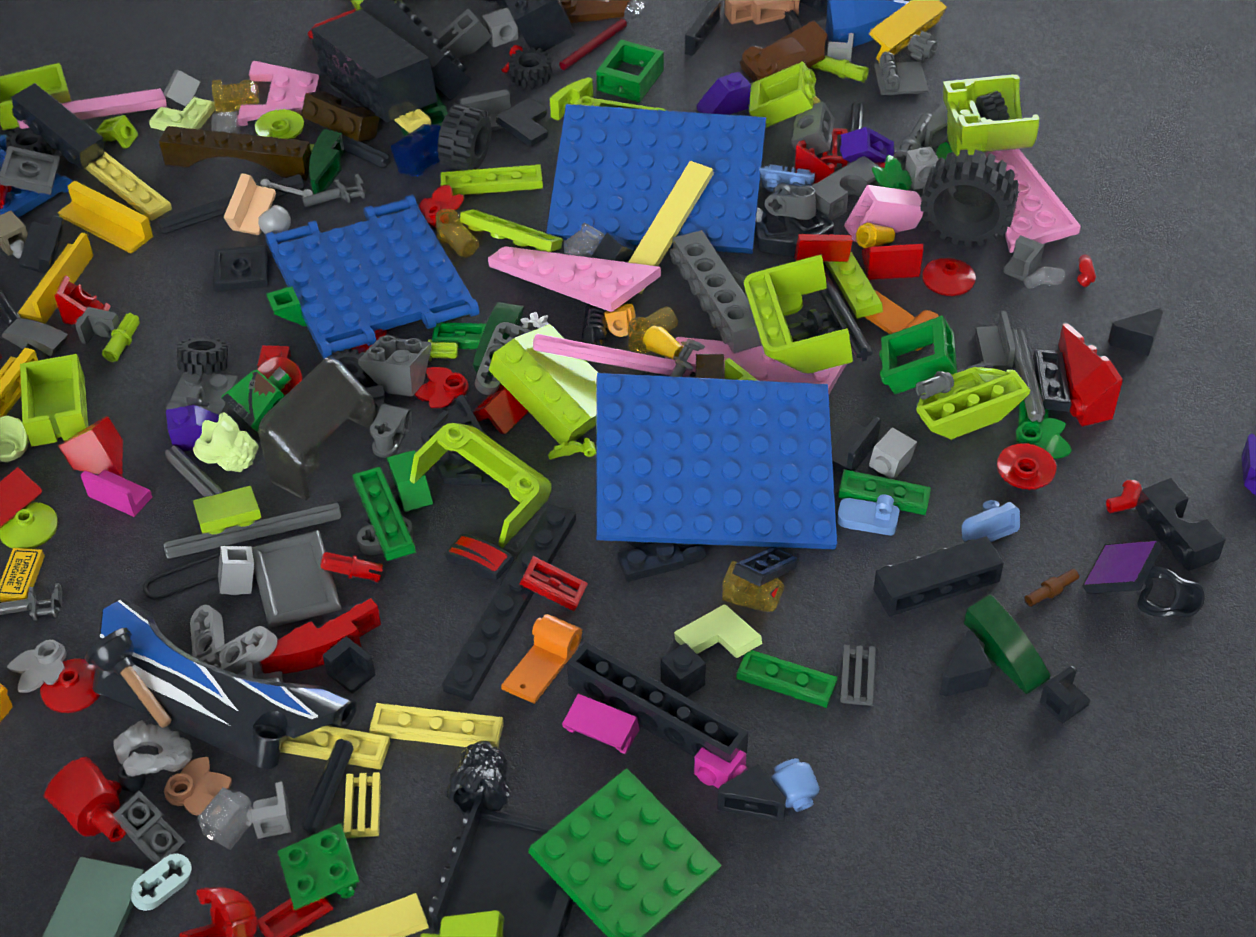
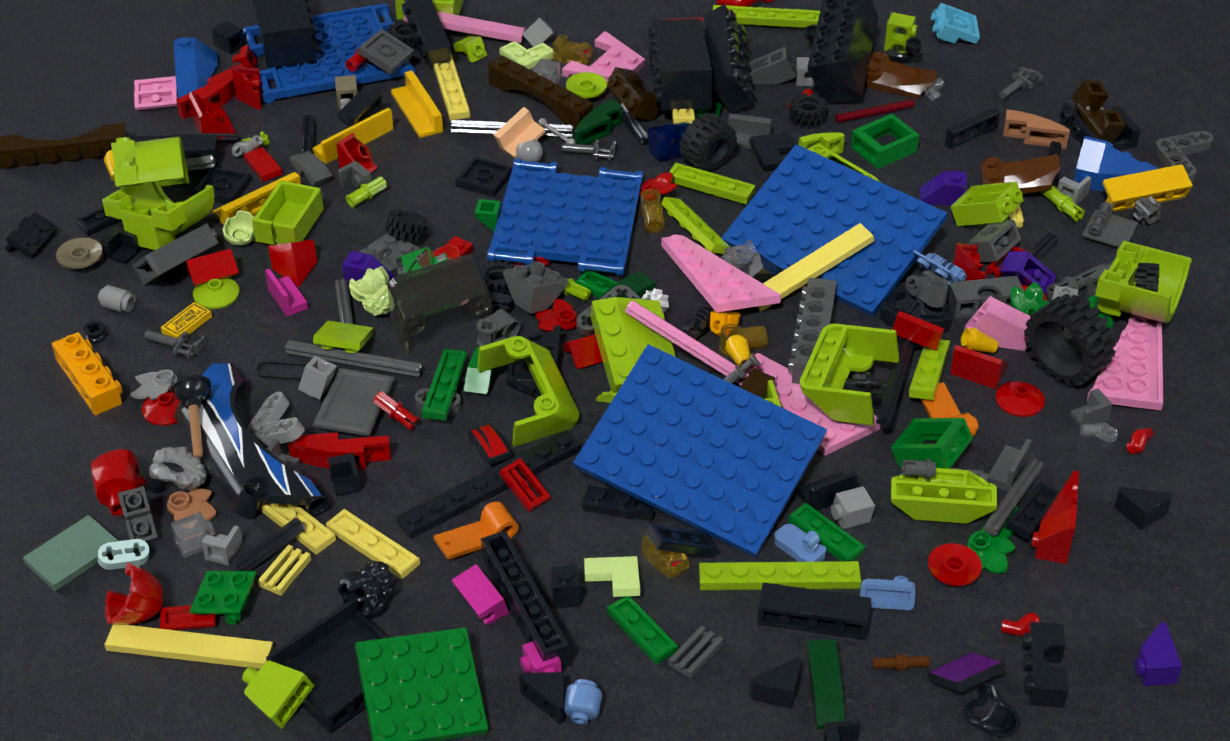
camera: 30 degrees right, 5 degrees down
(871, 556) = (795, 574): none -> lime plate

